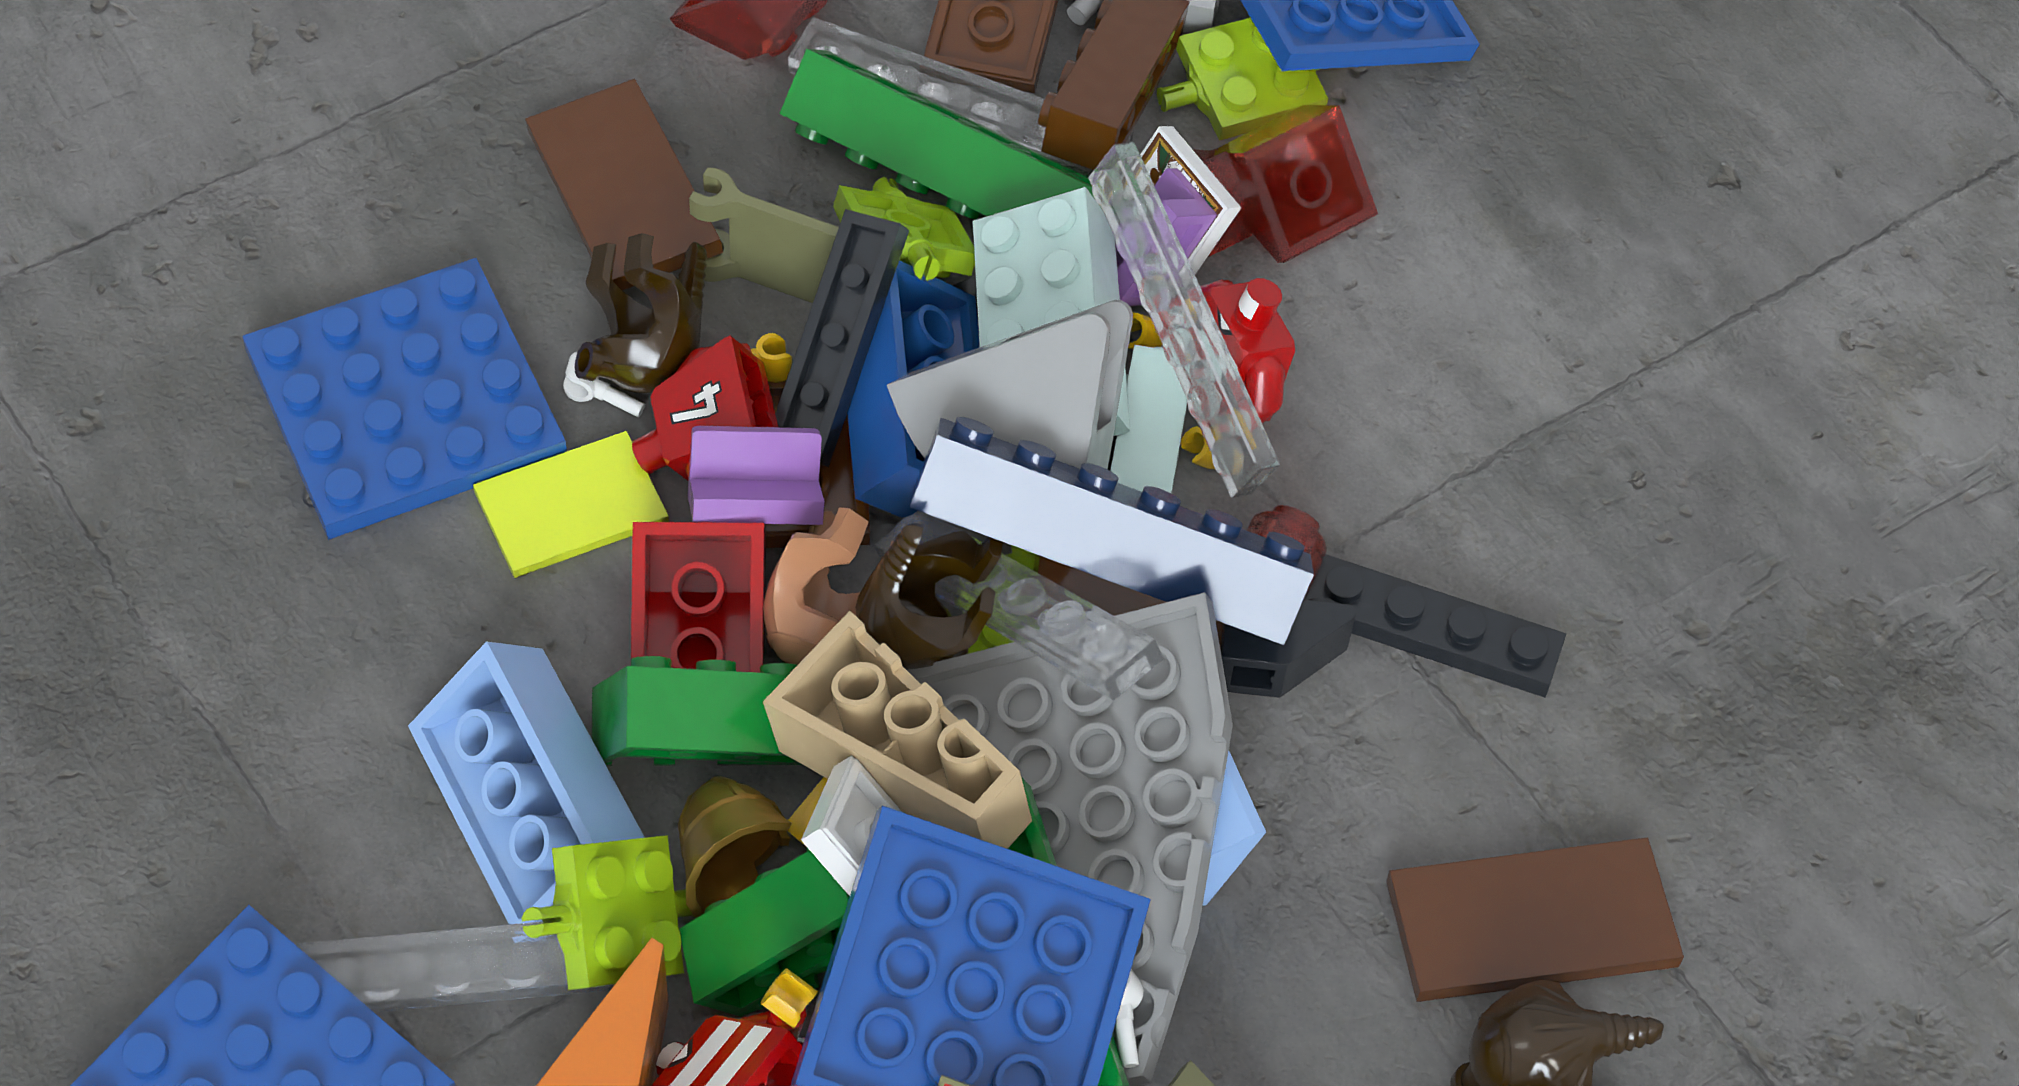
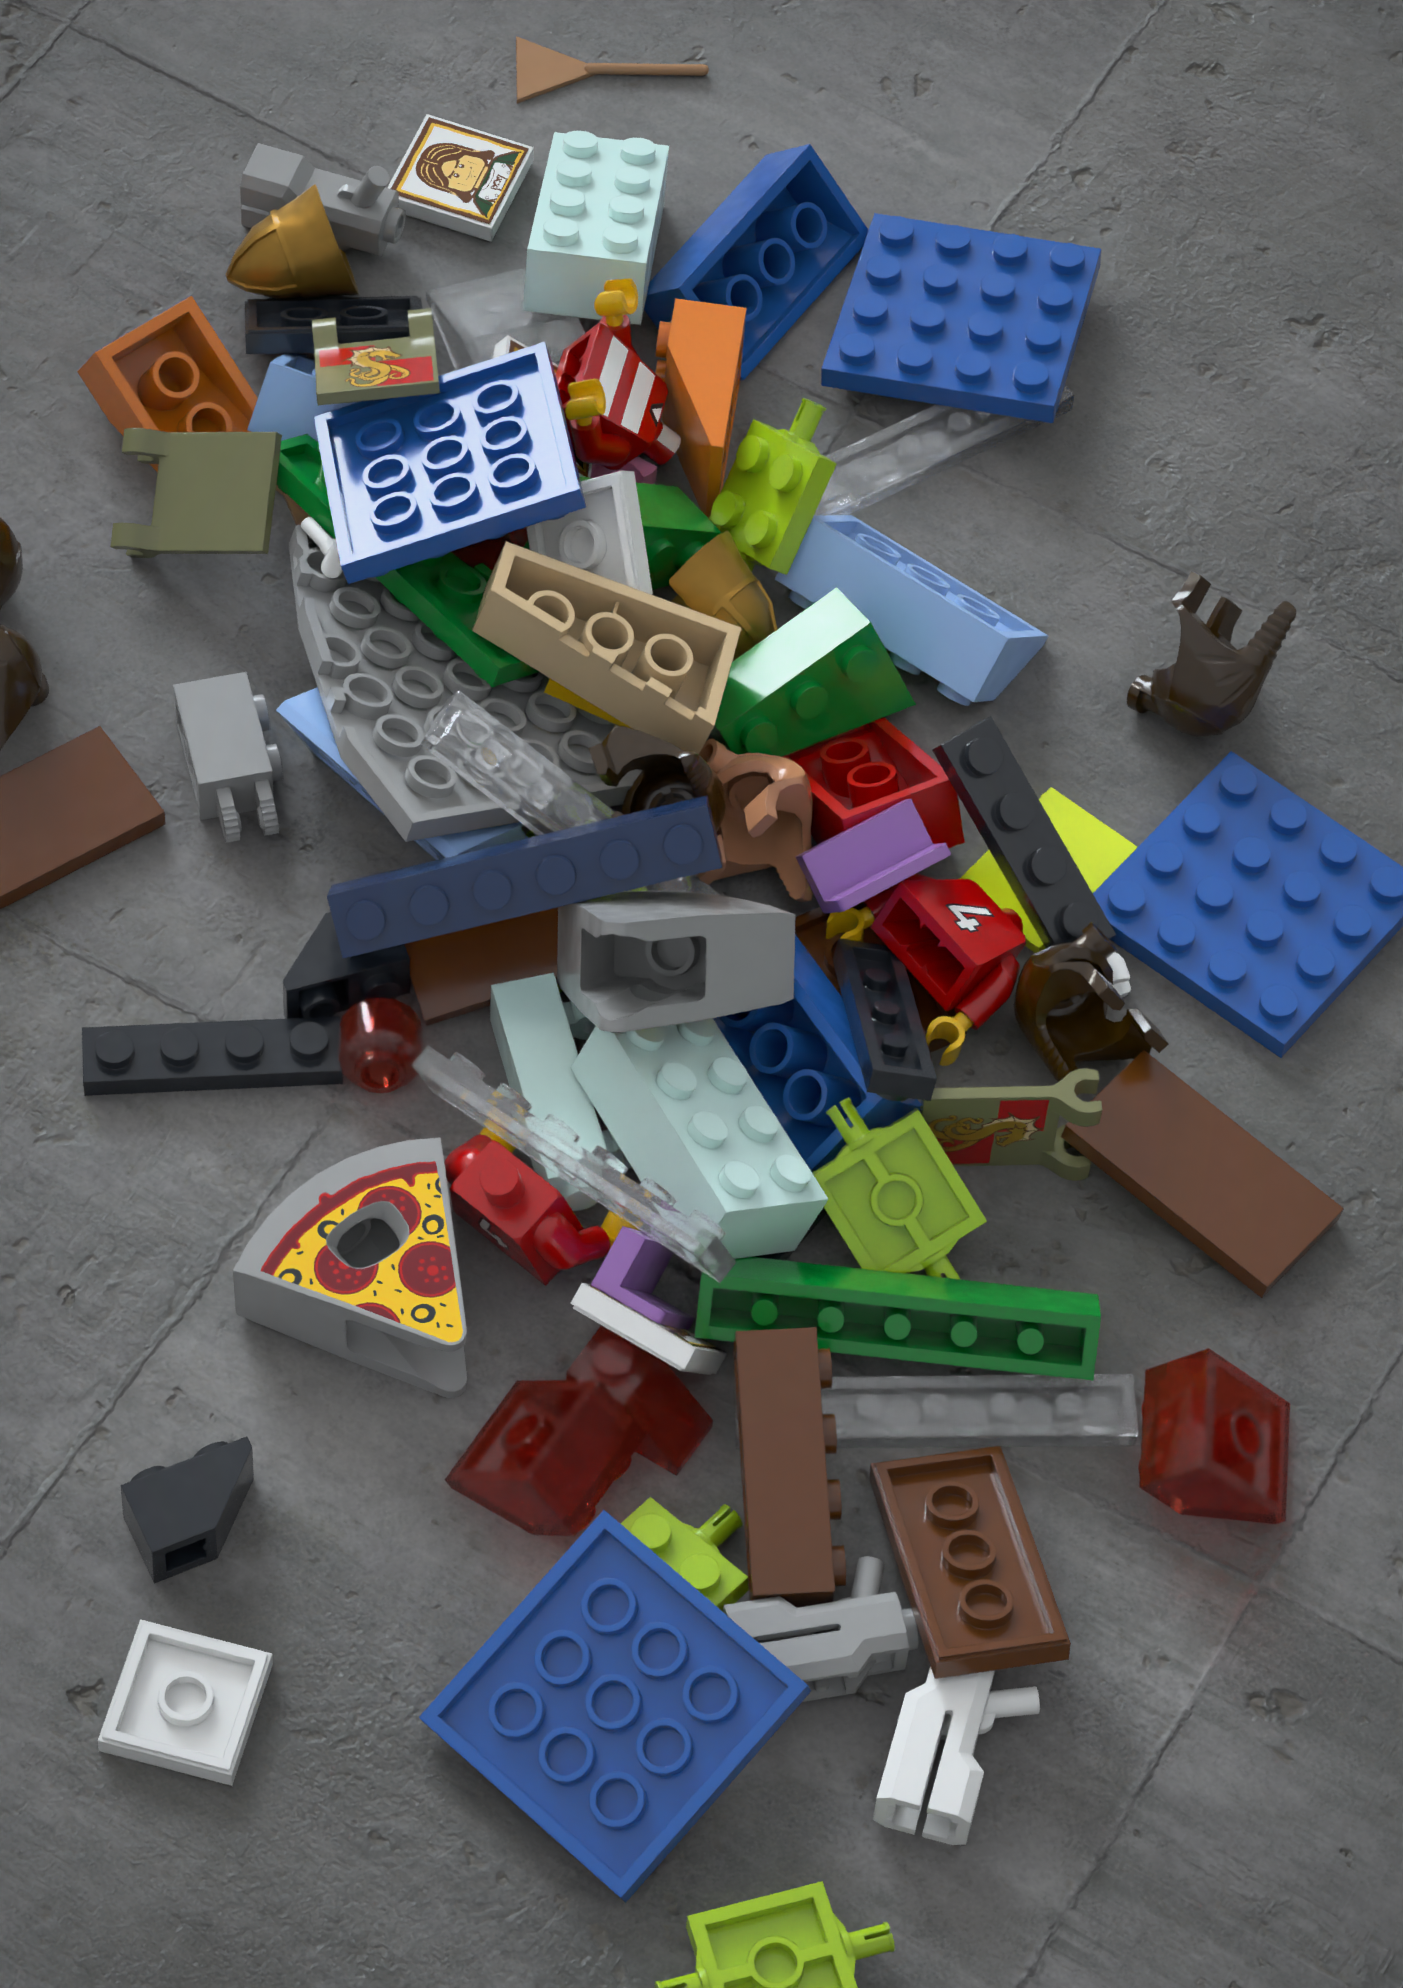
camera: 155 degrees right, 0 degrees up
(296, 561) = (1212, 680): none -> dark brown piece
(597, 472) = (1020, 834): none -> black plate
(1304, 904) = (226, 751): none -> light grey hinge
(1385, 355) = (366, 1267): none -> piece
(1603, 248) = (187, 1509): none -> black slope
(1651, 137) = (185, 1702): none -> white tile

